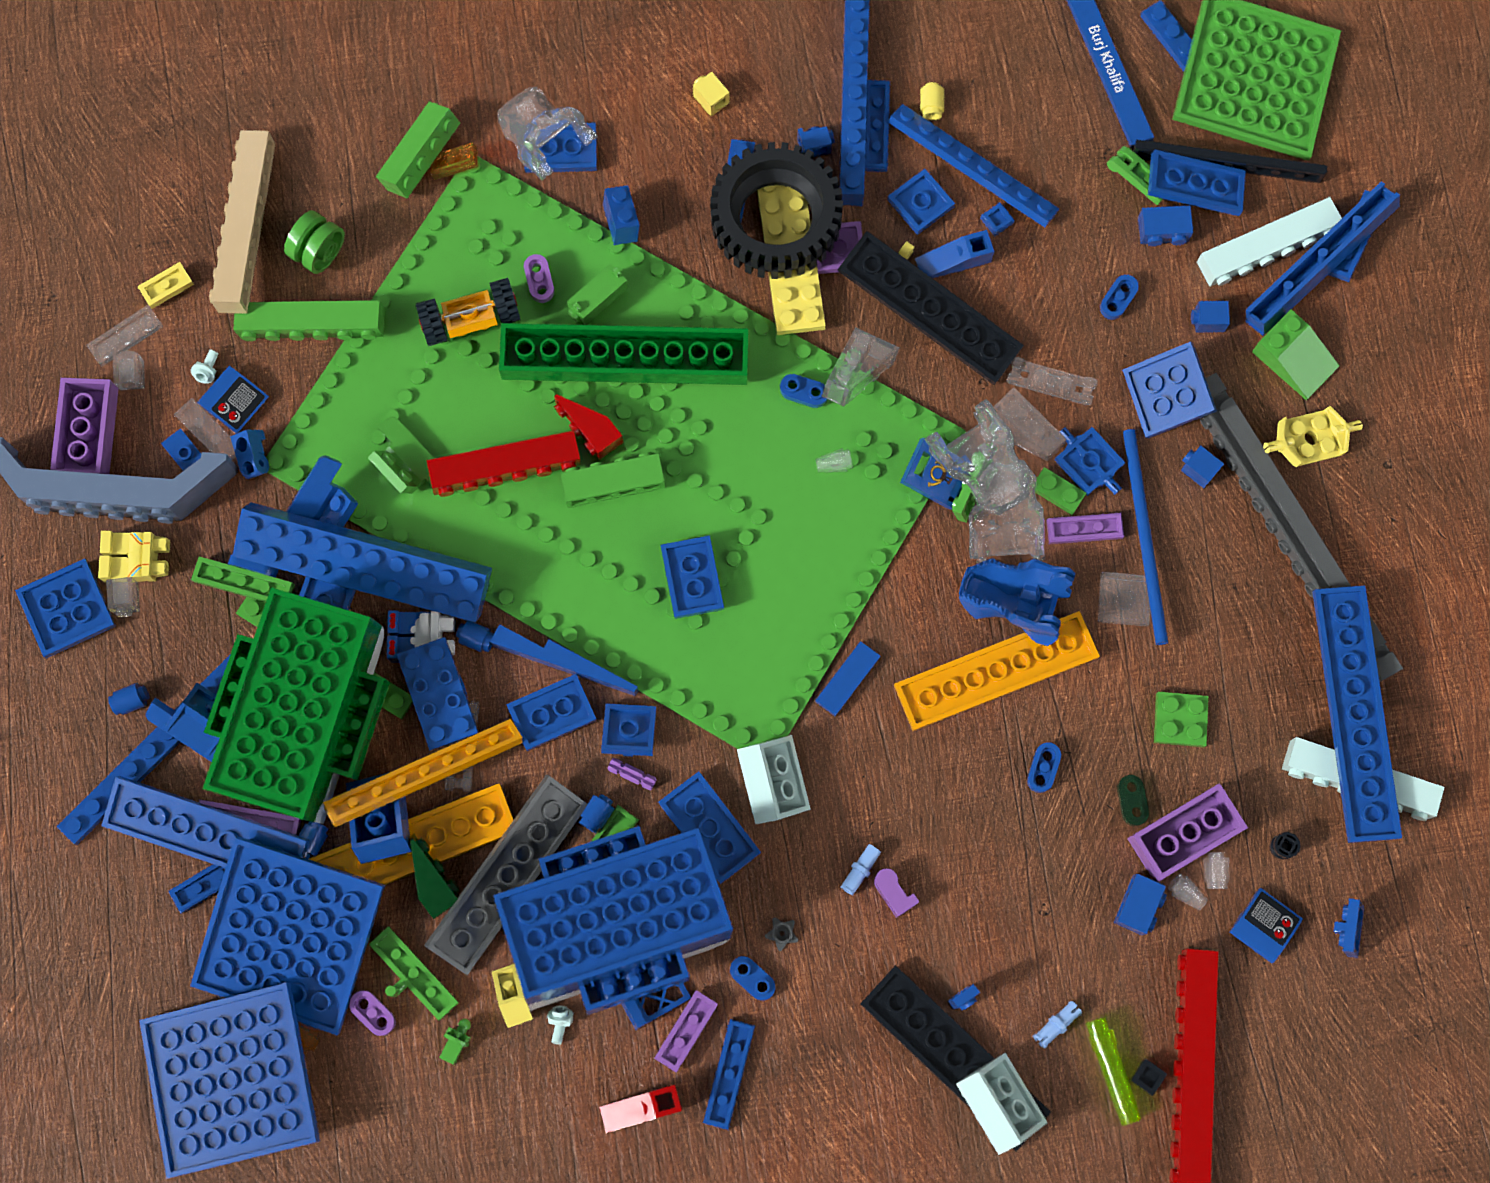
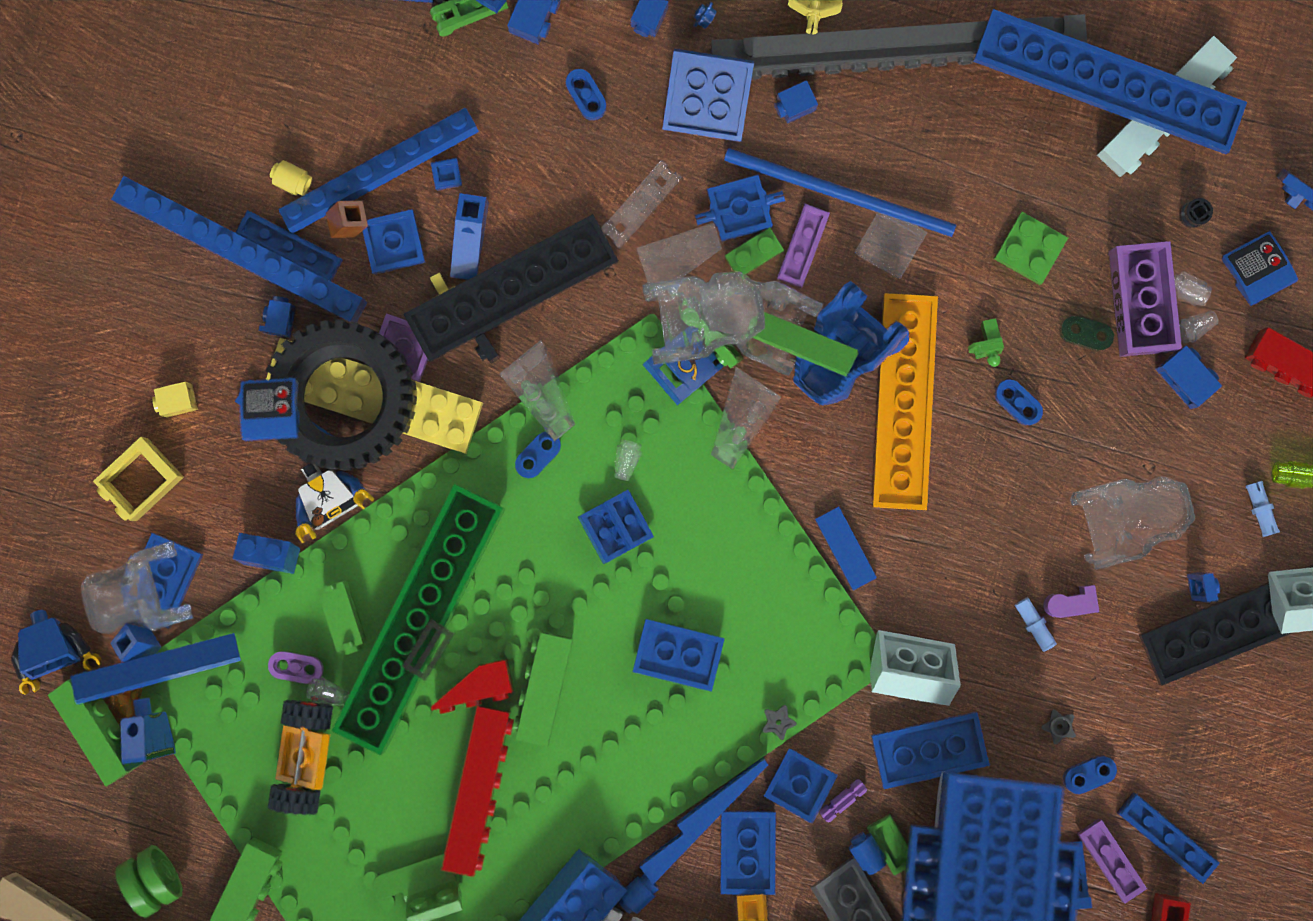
camera: 65 degrees left, 10 degrees up
(431, 187) = (145, 734): none -> blue torso
(465, 85) = (47, 648): none -> blue torso
(488, 170) = (155, 668): none -> blue tile
(500, 149) = (134, 642): none -> blue brick
(529, 308) = (326, 693): none -> clear cone
(603, 368) = (440, 629): none -> clear smoke tile
(638, 75) = (157, 459): none -> light yellow window
(676, 692) = (786, 722): none -> dark grey plate
(686, 242) = (326, 498): none -> torso
(739, 156) = (269, 409): none -> slope
(774, 479) = (615, 526): none -> blue slope
(870, 311) = (485, 349): none -> black plate
(915, 539) = (743, 416): none -> clear wedge
(921, 156) = (346, 219): none -> dark orange brick
(996, 907) = (1133, 517): none -> clear animal
(1003, 558) = (807, 345): none -> bright green tile
(1078, 721) = (991, 345): none -> bright green piece
(1234, 360) = (704, 15): none -> blue plate

